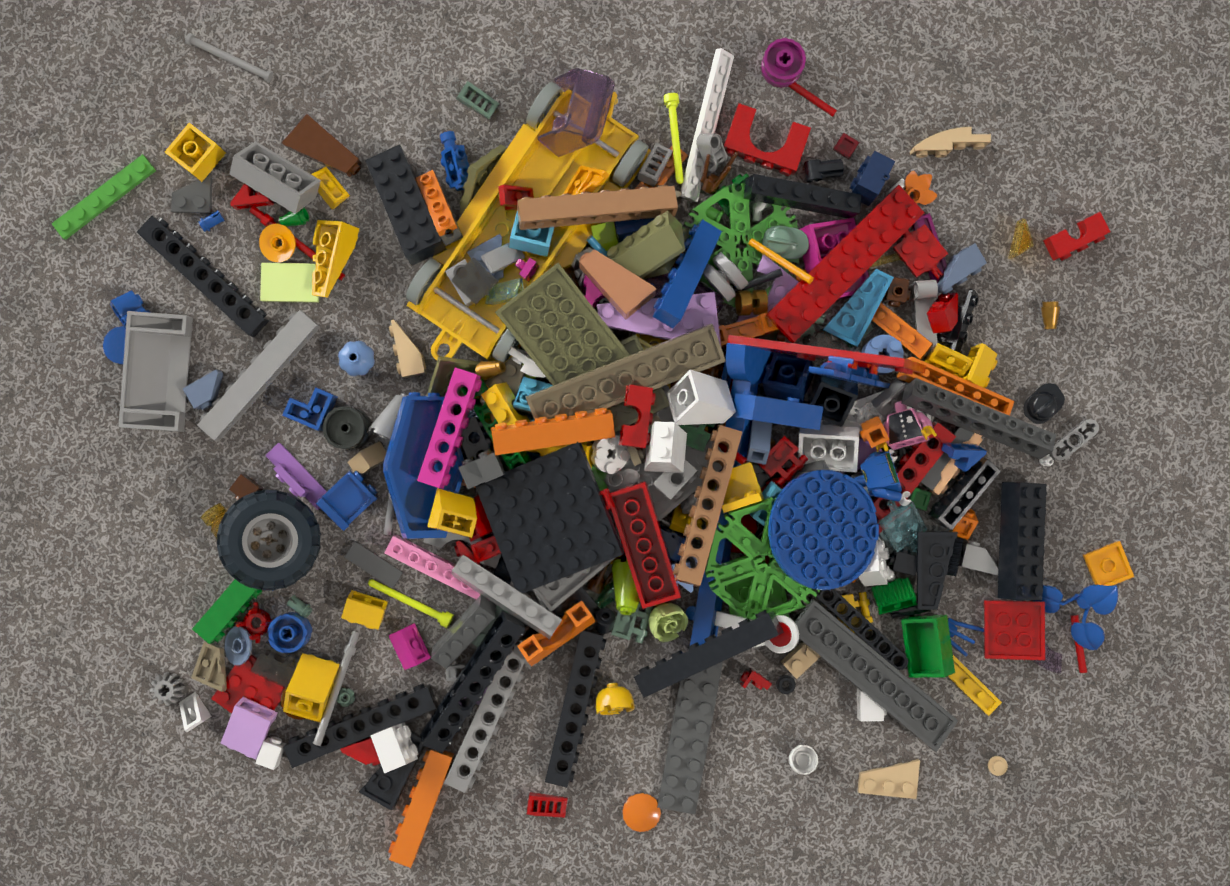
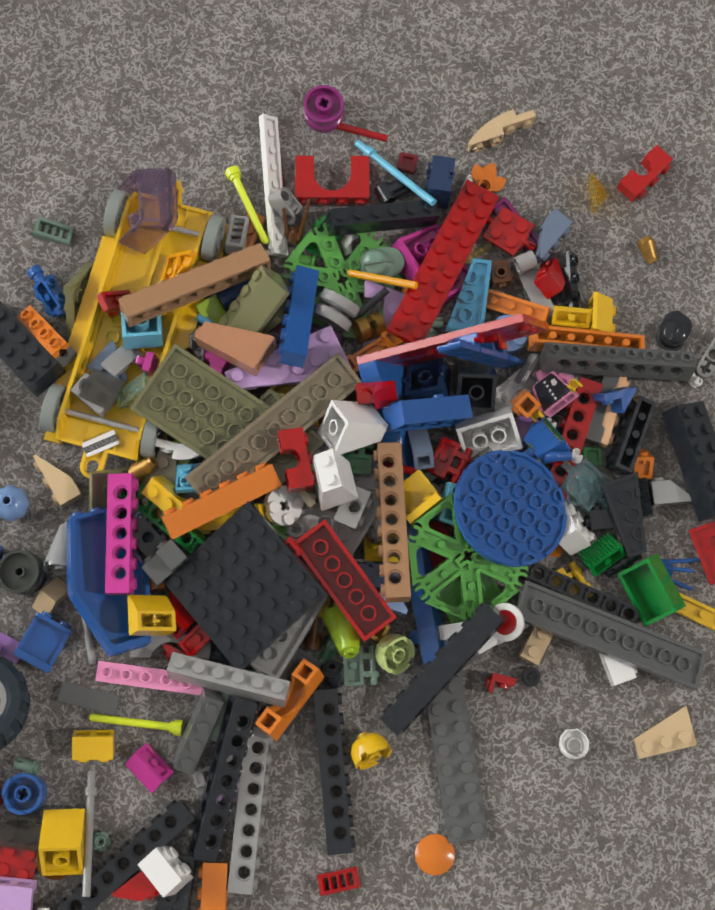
camera: 20 degrees left, 10 degrees down
(458, 331) = (100, 443): none -> sticker
(738, 377) = (379, 393): none -> red slope
(814, 124) = (371, 152): none -> medium azure bar

